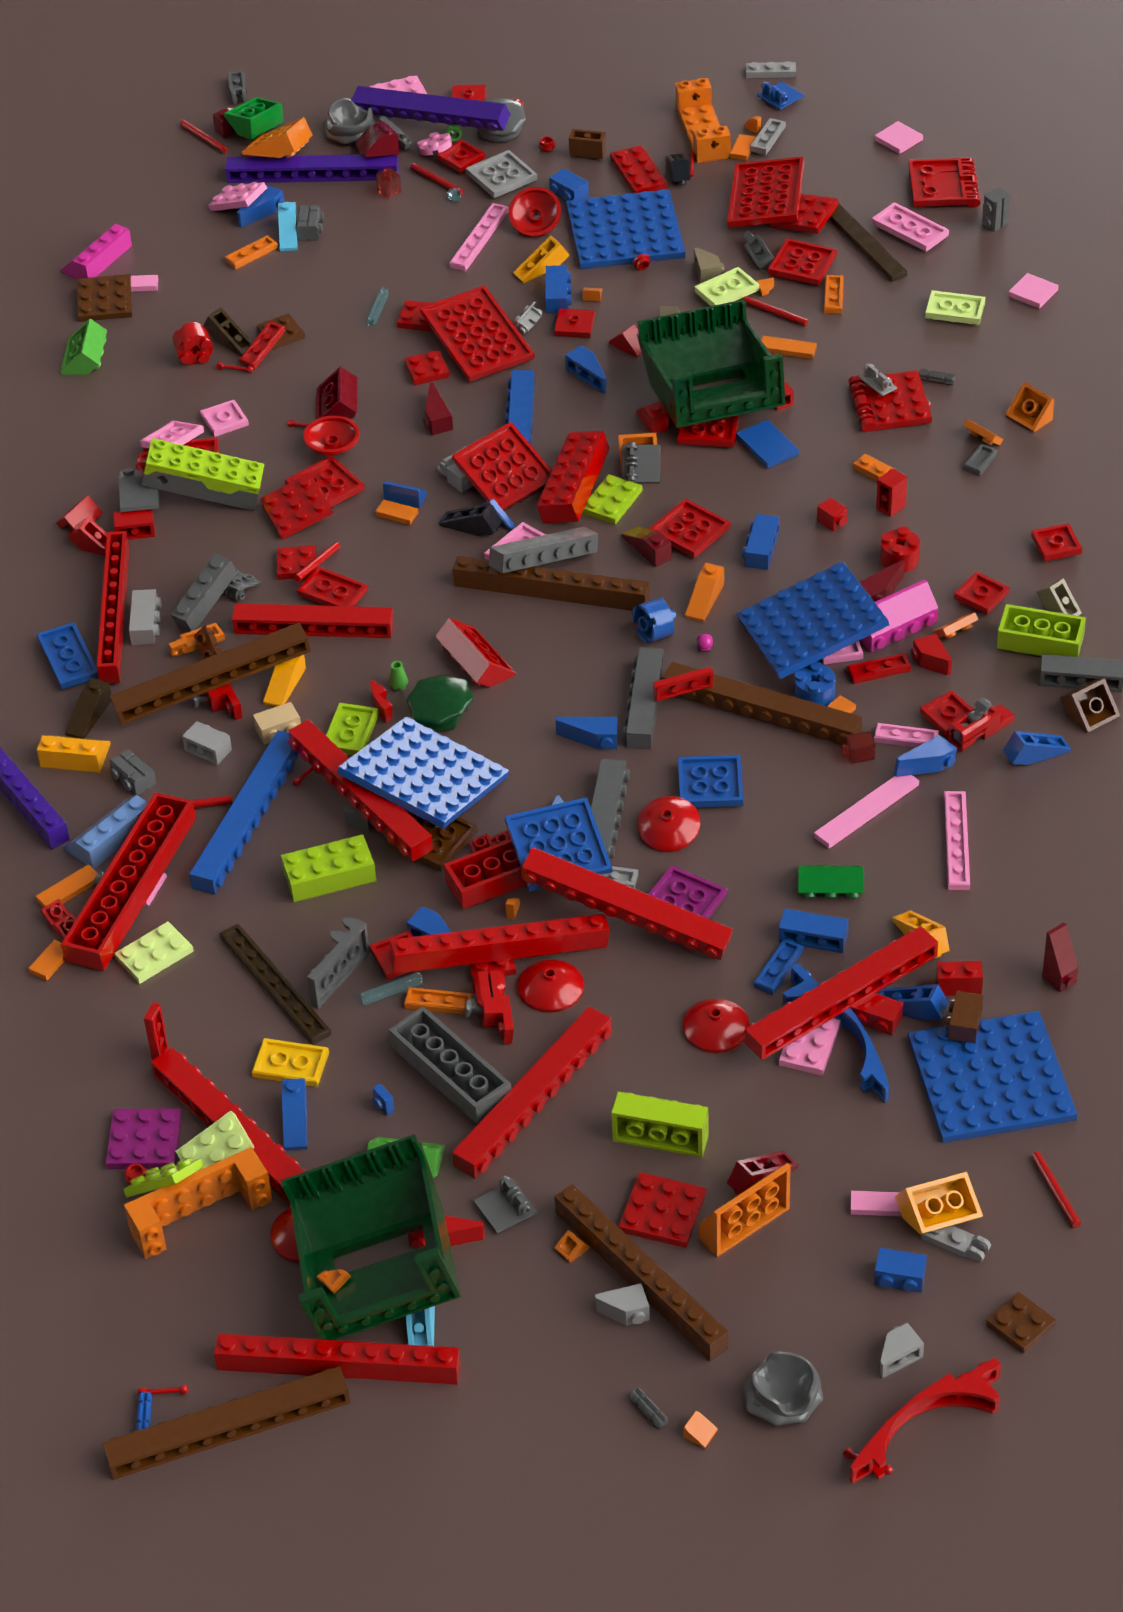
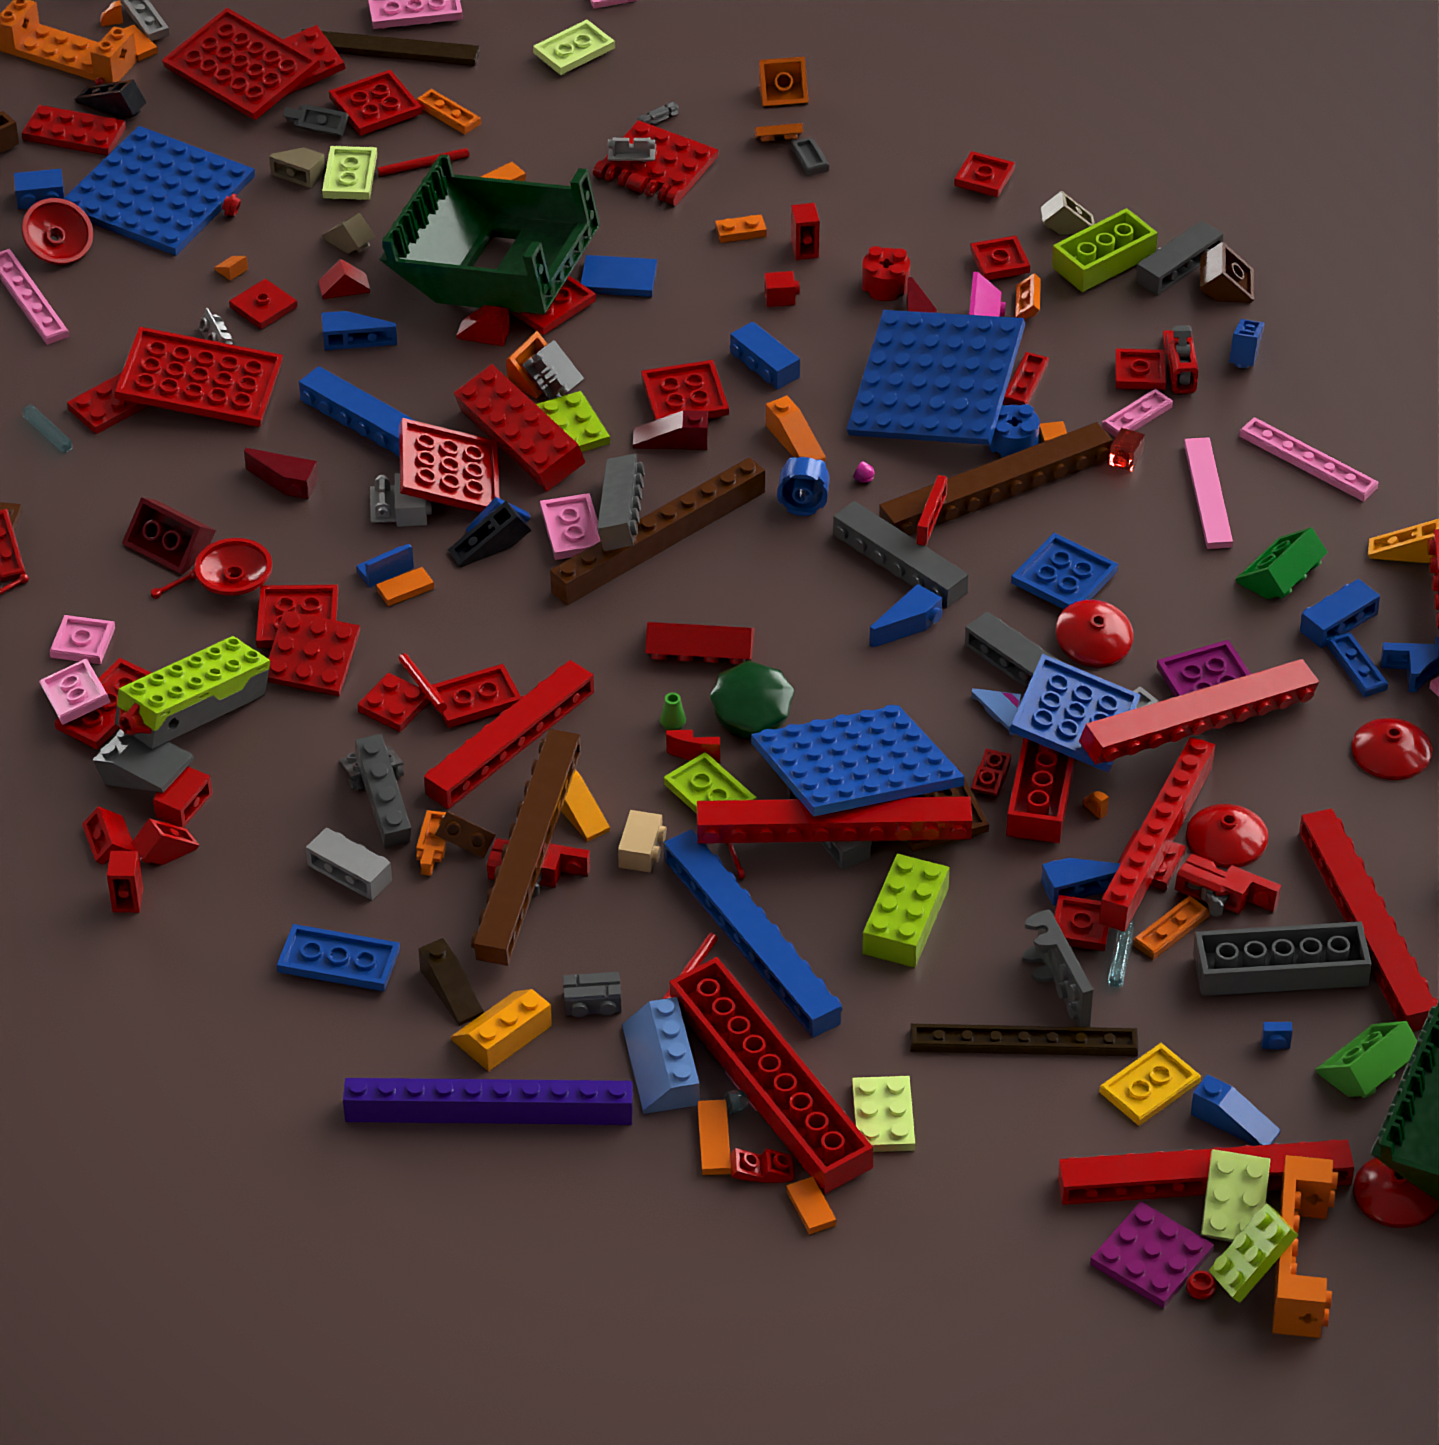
camera: 55 degrees left, 0 degrees up
(39, 538) = (125, 881): none -> red brick
(113, 607) = (310, 877): red brick -> none
(155, 1030) = (1038, 1156): red tile -> none
(207, 742) = (610, 911): light grey brick -> none
(427, 367) = (196, 445): red plate -> none
(547, 254) = (137, 270): light orange slope -> none
(557, 288) = (196, 285): blue brick -> none
(765, 286) = (380, 143): orange tile -> none
(927, 758) = (1191, 410): blue slope -> none
(931, 654) = (1052, 334): red slope -> none

